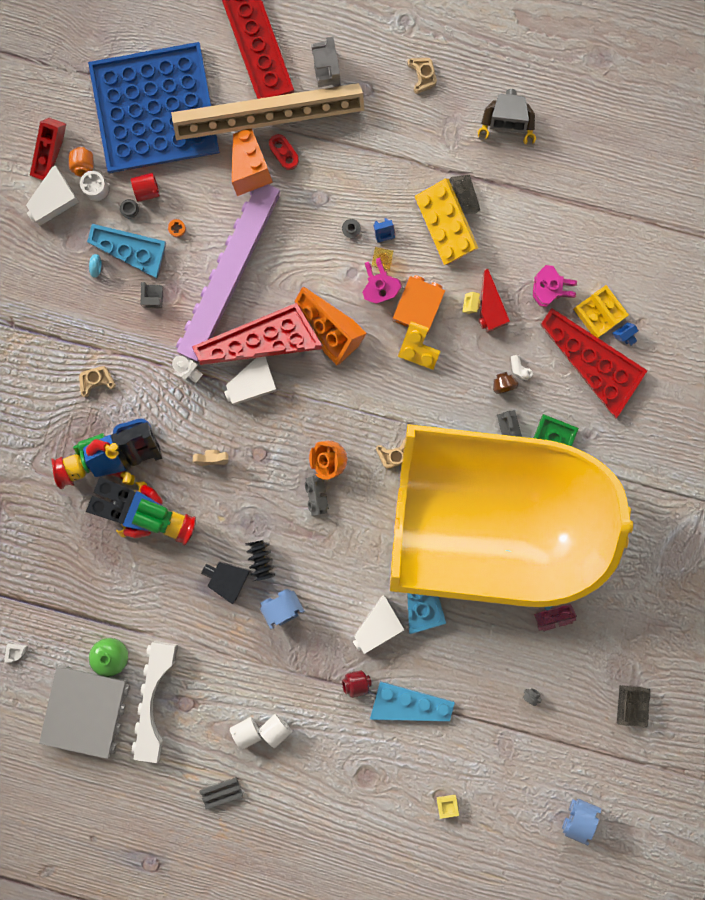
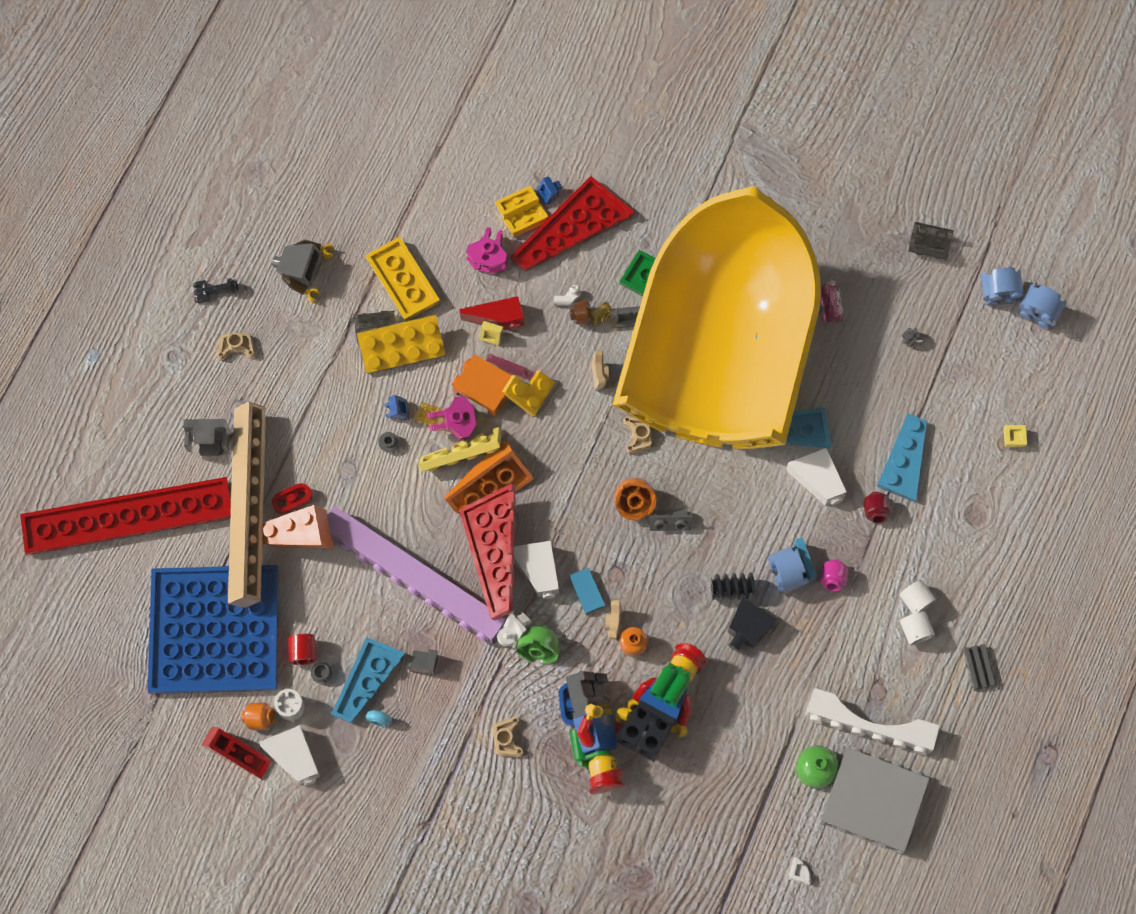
camera: 85 degrees left, 15 degrees down
(172, 224) = (347, 628): orange bush -> none
(180, 394) = (539, 643): none -> bright green cylinder
(202, 478) = (628, 637): none -> orange head
(238, 429) = (587, 591): none -> dark azure tile
(285, 651) = (834, 575): none -> dark pink head
(295, 622) = (806, 560): none -> dark azure tile
(359, 314) = (461, 451): none -> light yellow wing
(442, 323) = (507, 364): none -> clear pink tile
(449, 410) = (600, 371): none -> tan piece
(480, 56) = (205, 290): none -> black hinge
(506, 402) = (601, 314): none -> clear yellow plate
(512, 212) = (402, 279): none -> yellow plate
(597, 780) = (1002, 285): none -> medium blue brick

